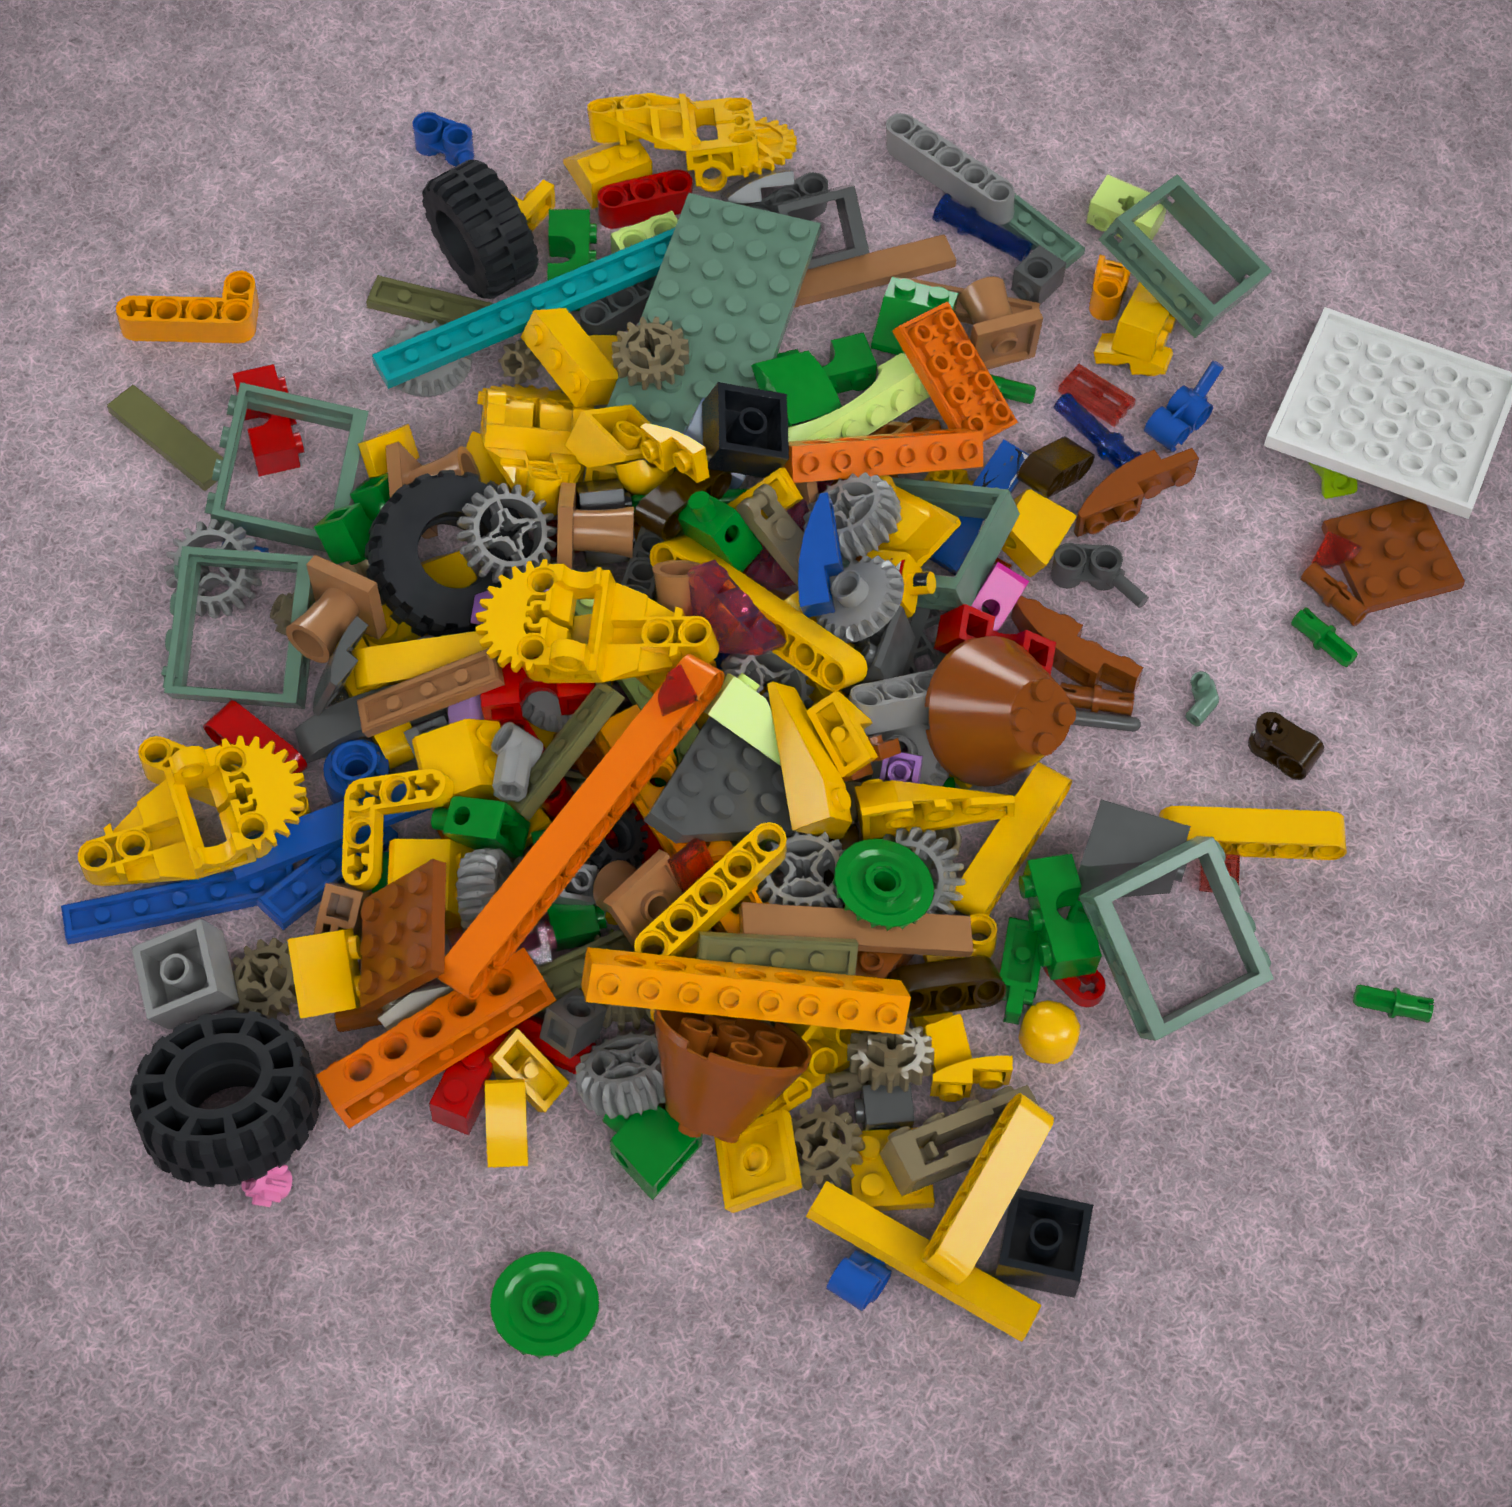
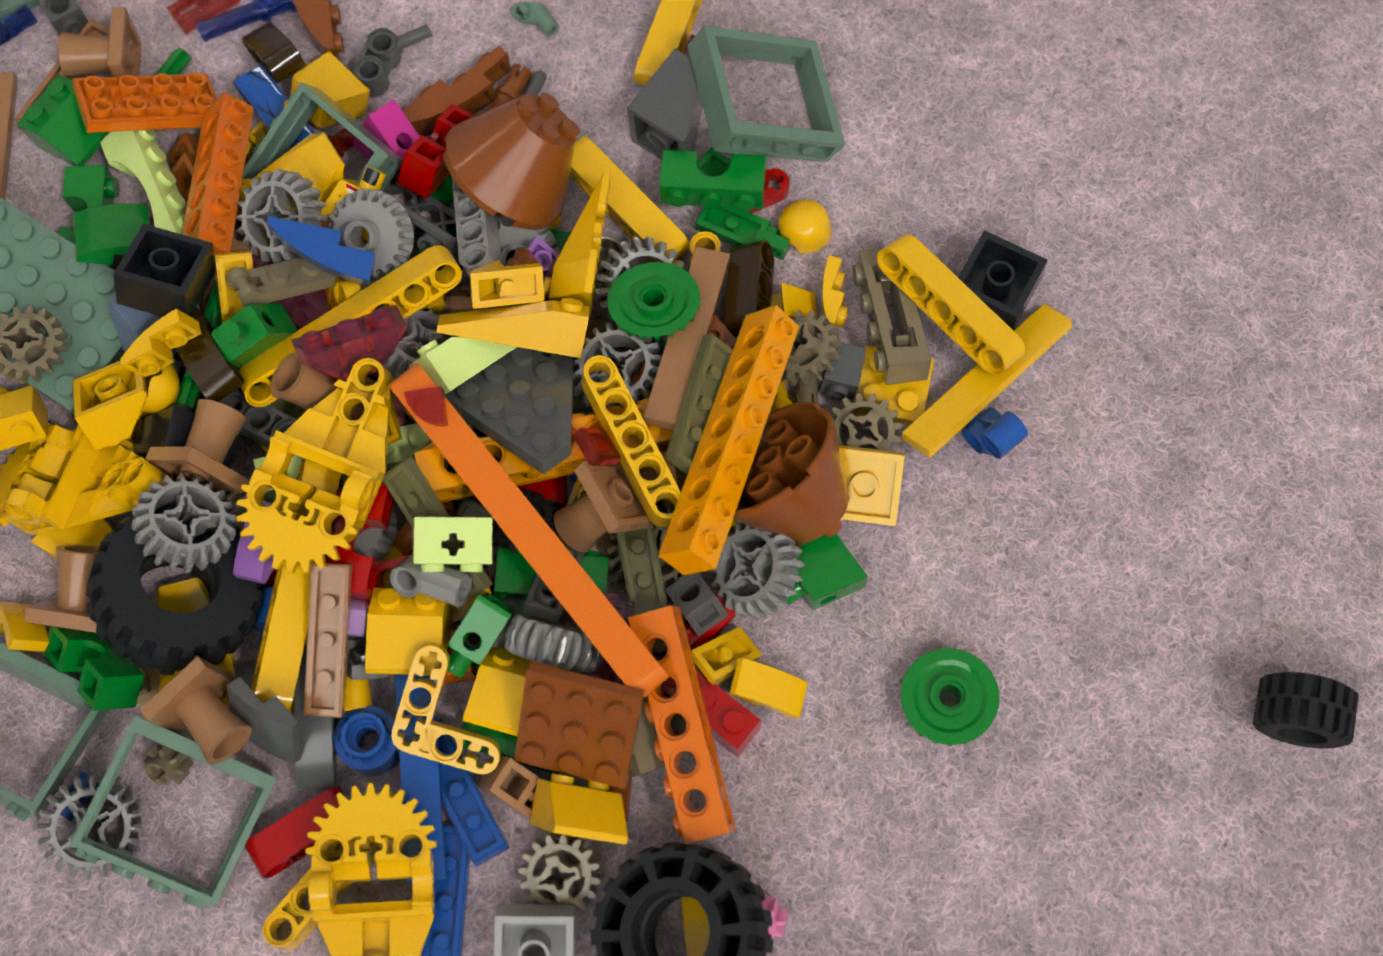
camera: 65 degrees left, 10 degrees up
(542, 737) = (473, 532): none -> yellowish green brick

